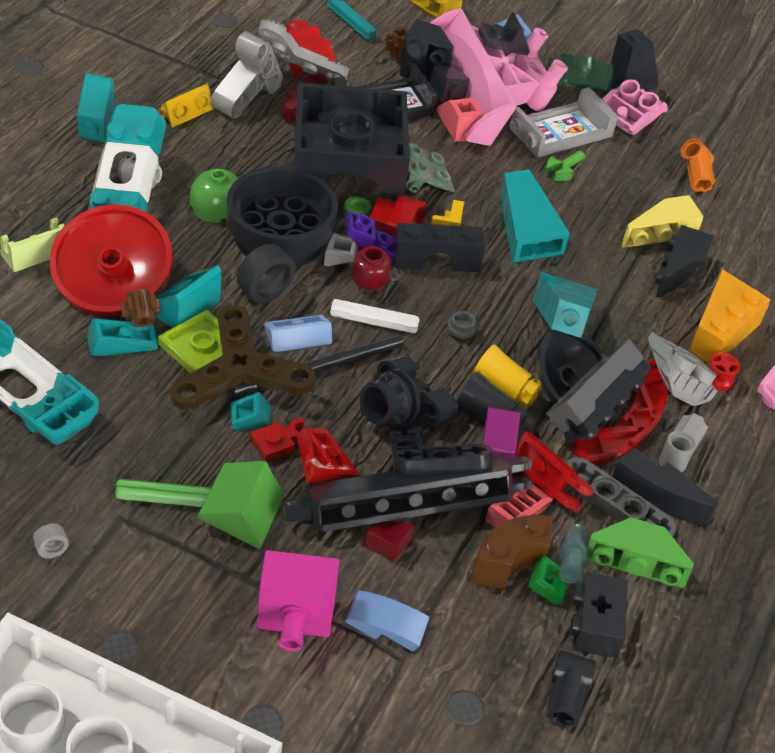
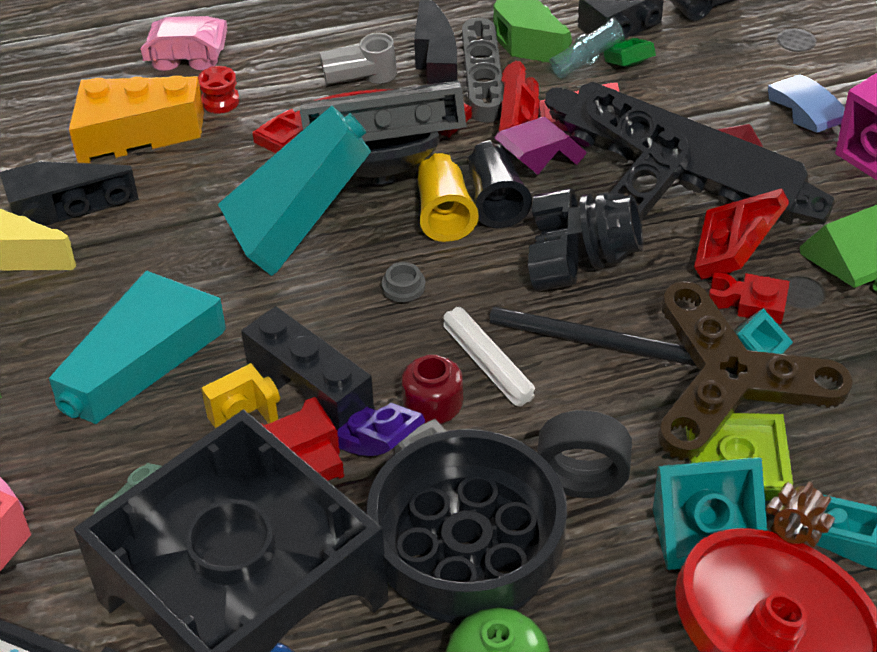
camera: 125 degrees left, 0 degrees up
(299, 333) = (589, 391): light blue slope -> none
(512, 549) = (648, 74): reddish brown brick -> none
(682, 371) = (261, 98): light grey slope -> none

